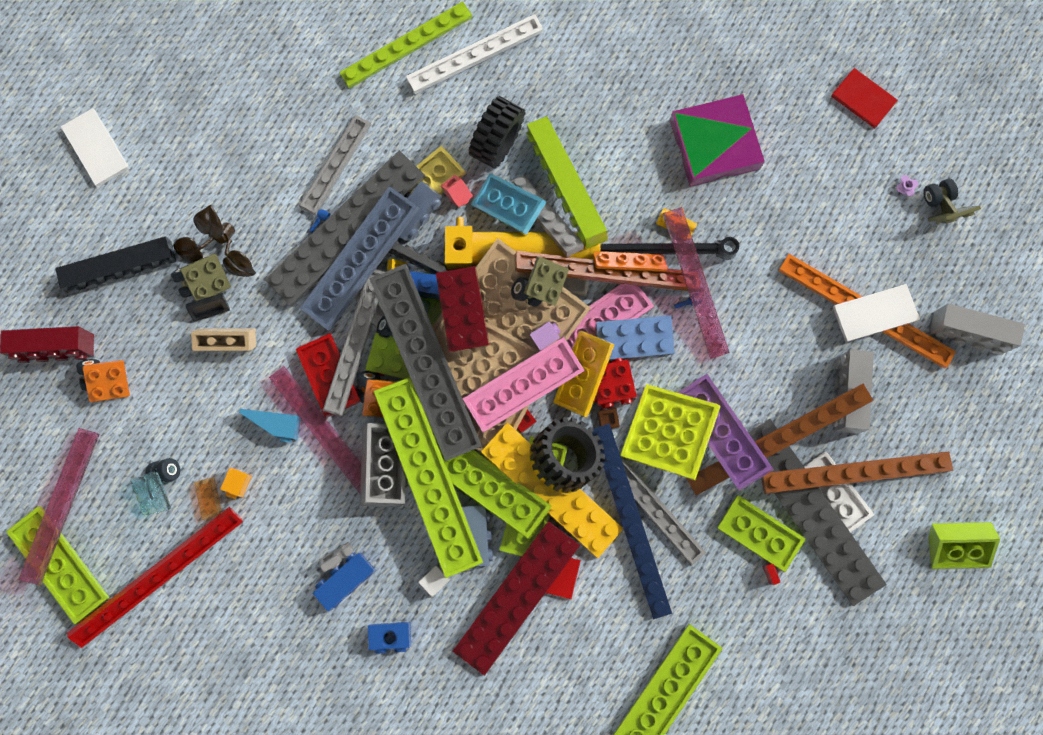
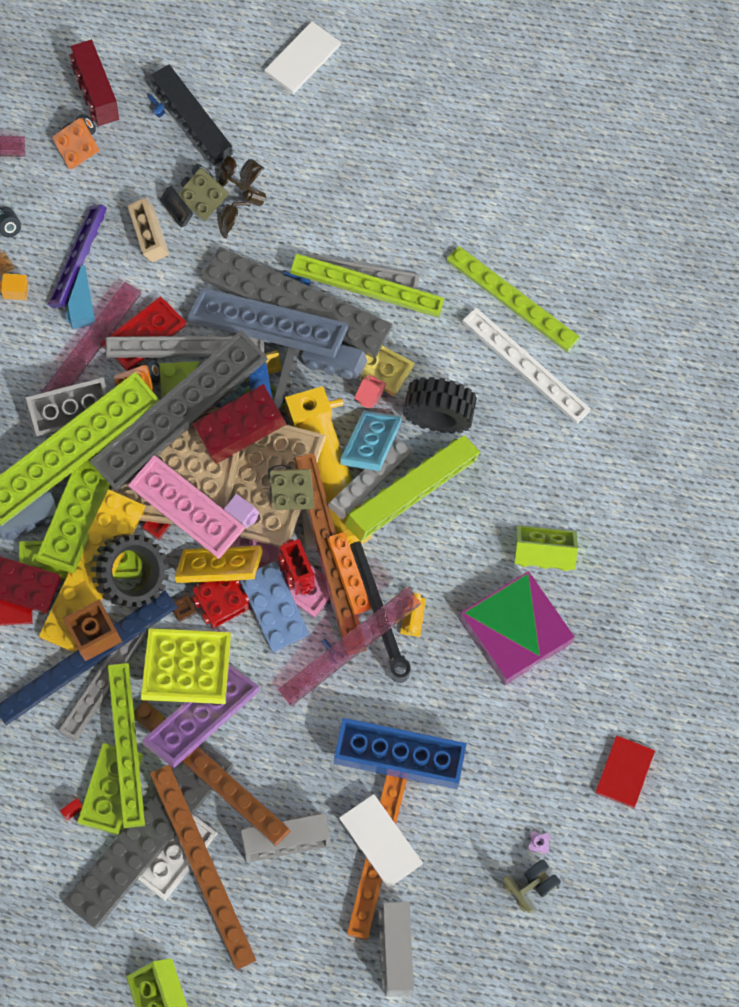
camera: 65 degrees right, 10 degrees down
(98, 293) = (159, 107): none -> blue hand
(225, 414) = (77, 255): none -> plate
(351, 162) = (367, 285): none -> lime plate
(613, 303) = (297, 567): none -> red brick
(615, 506) = (92, 630): none -> dark orange brick
(650, 92) = (546, 548): none -> lime slope
(729, 507) = (126, 746): none -> lime plate
(808, 271) = (400, 753): none -> blue brick

